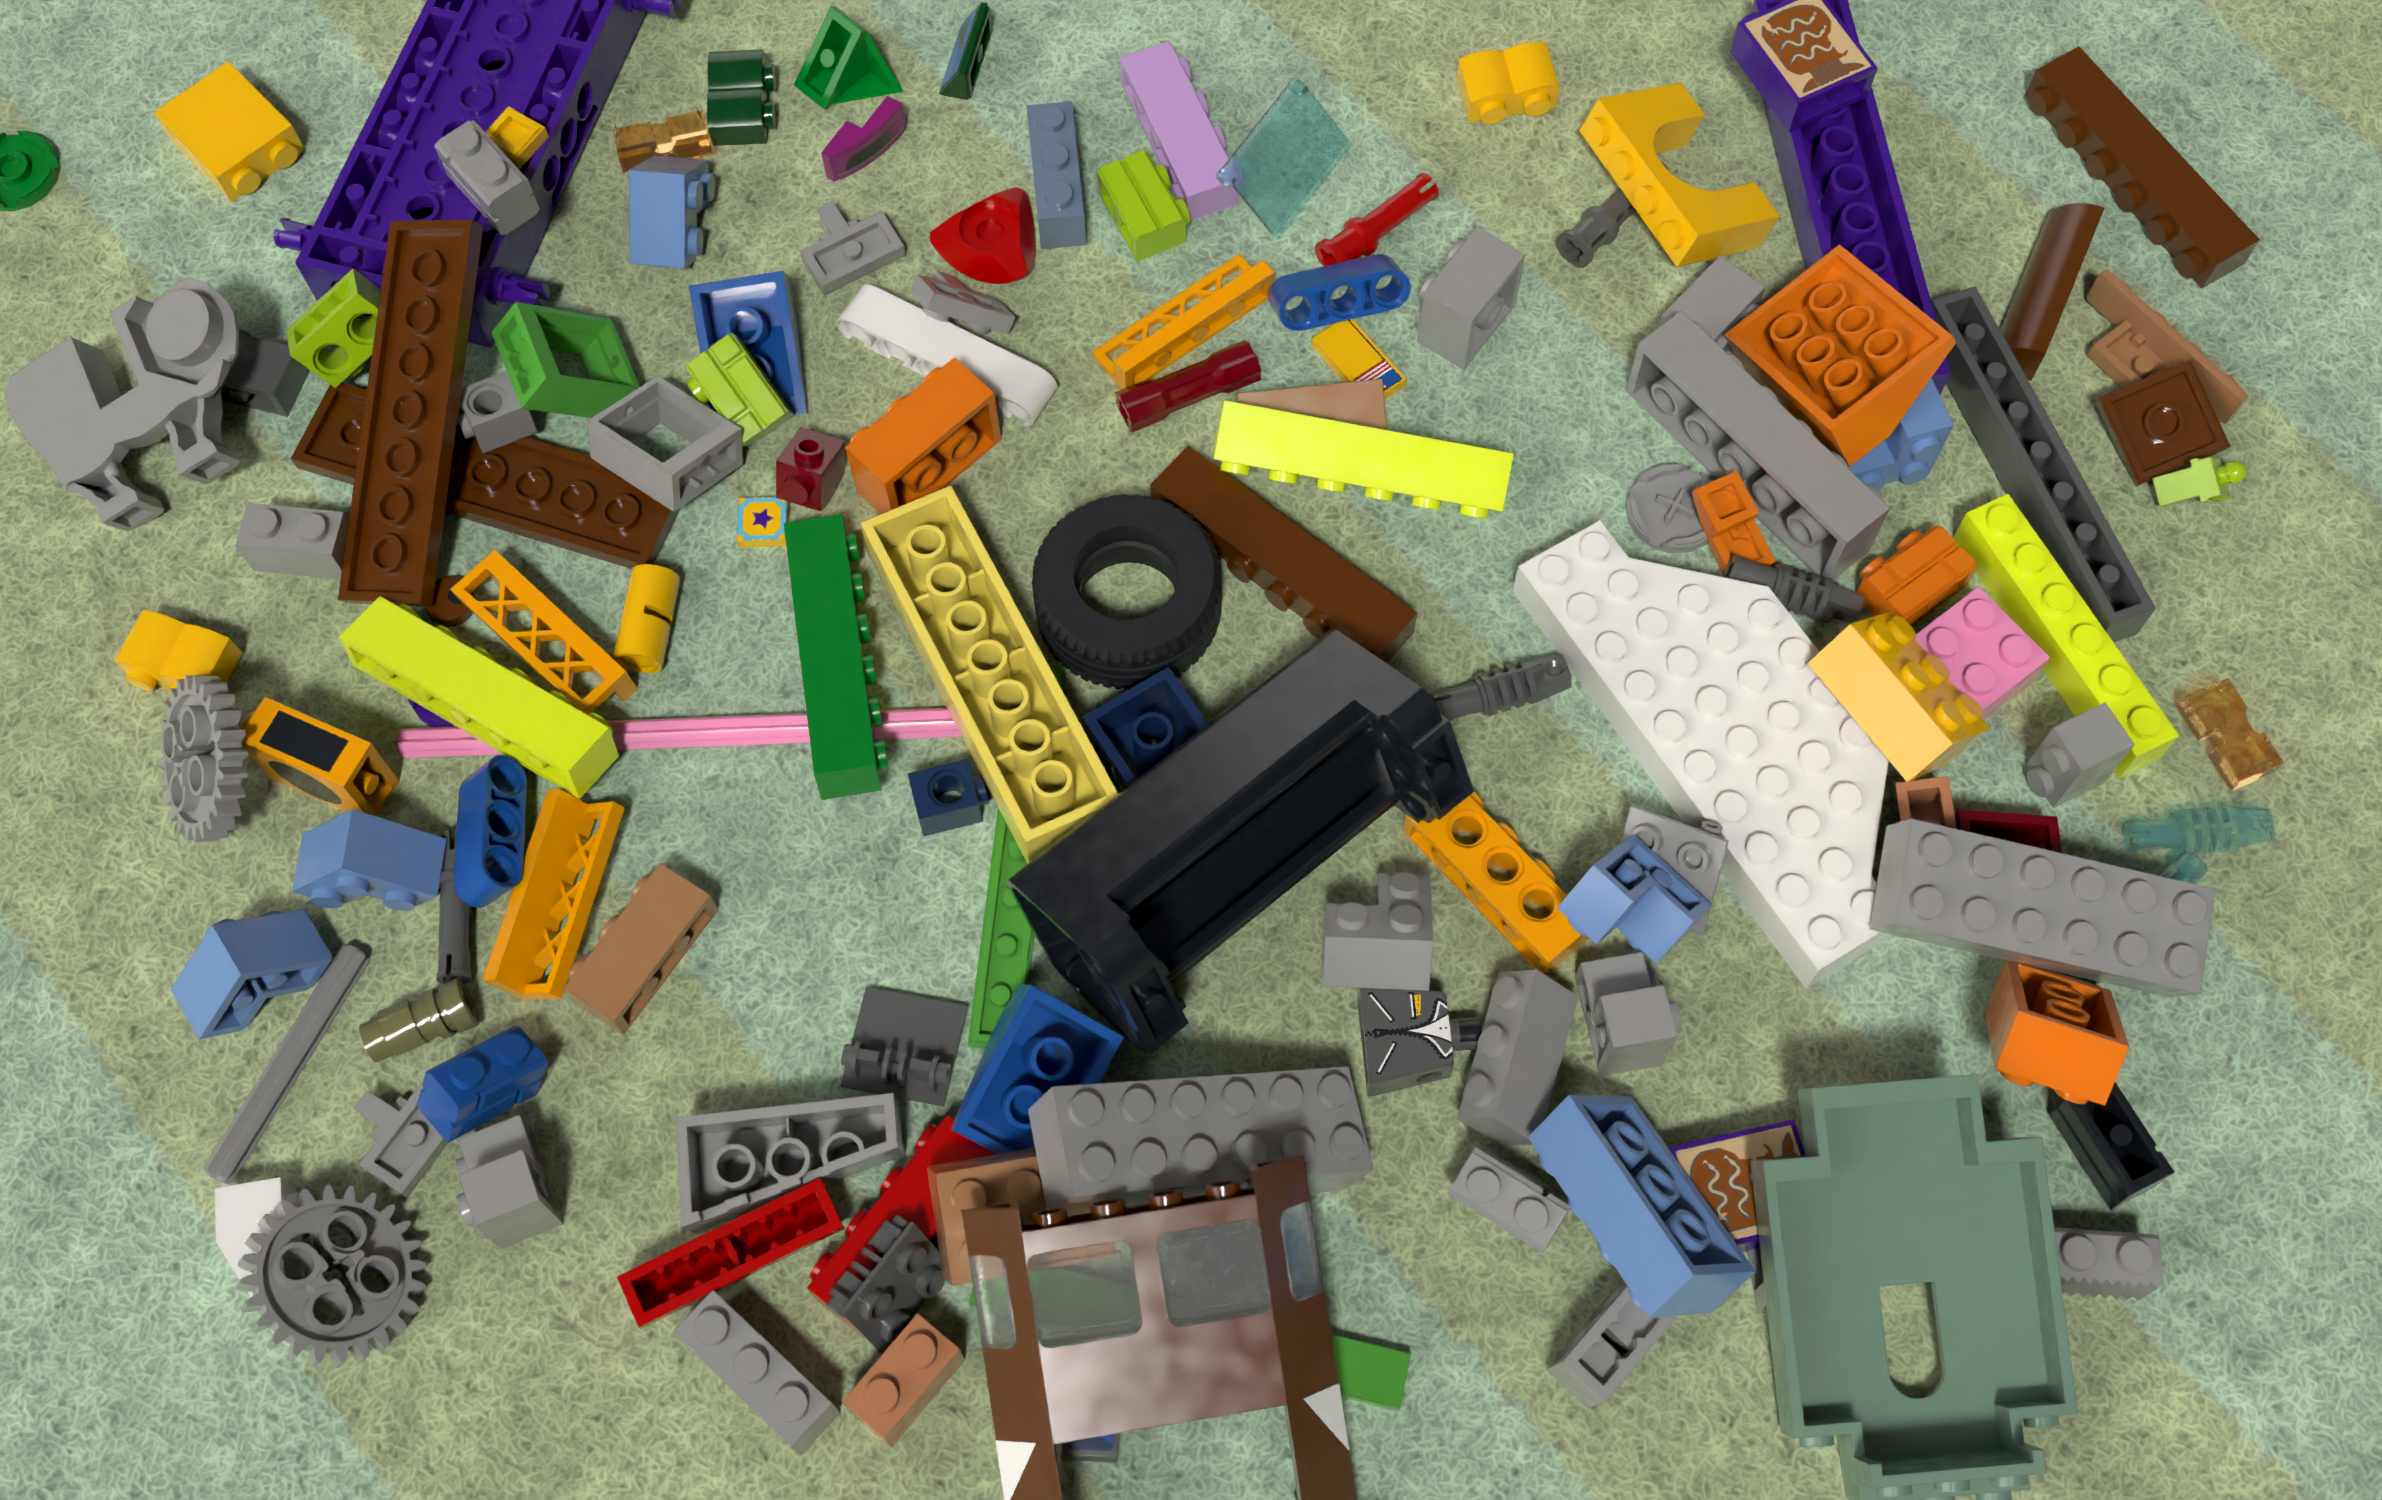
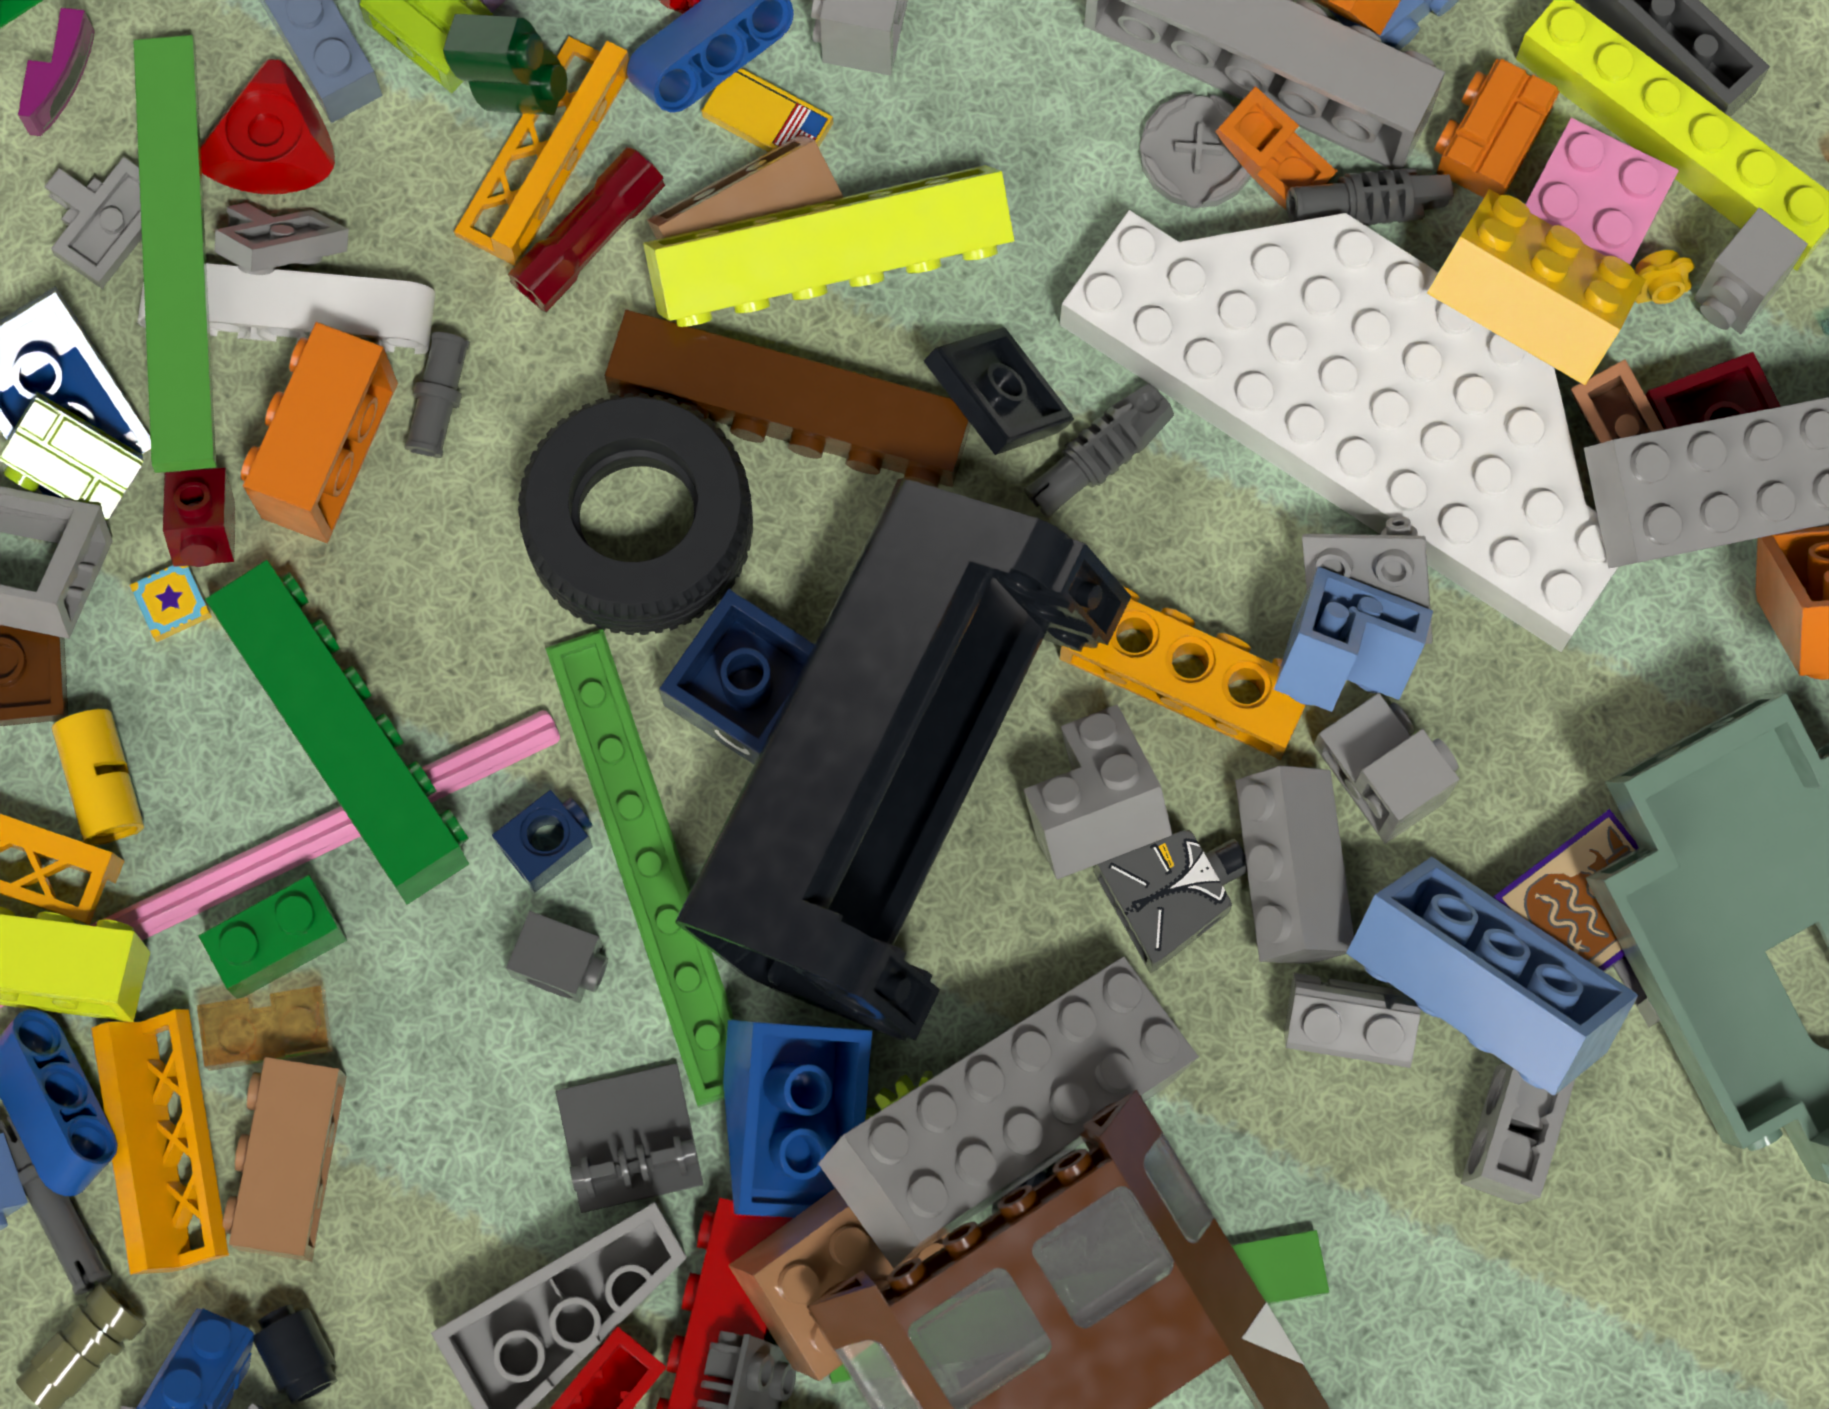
camera: 25 degrees left, 10 degrees up
(573, 1095) = (295, 1353): none -> black brick
(693, 854) = (289, 1028): none -> clear orange piece
(712, 783) = (272, 937): none -> green brick
(879, 286) = (174, 255): none -> bright green tile
(914, 886) = (557, 958): none -> dark grey brick
(988, 669) = (528, 678): light yellow brick -> none
(1024, 456) = (437, 394): none -> dark grey pin
(1180, 245) = (505, 64): none -> dark green brick
(1442, 612) = (999, 390): none -> black plate
(2006, 738) = (1665, 277): none -> yellow plate

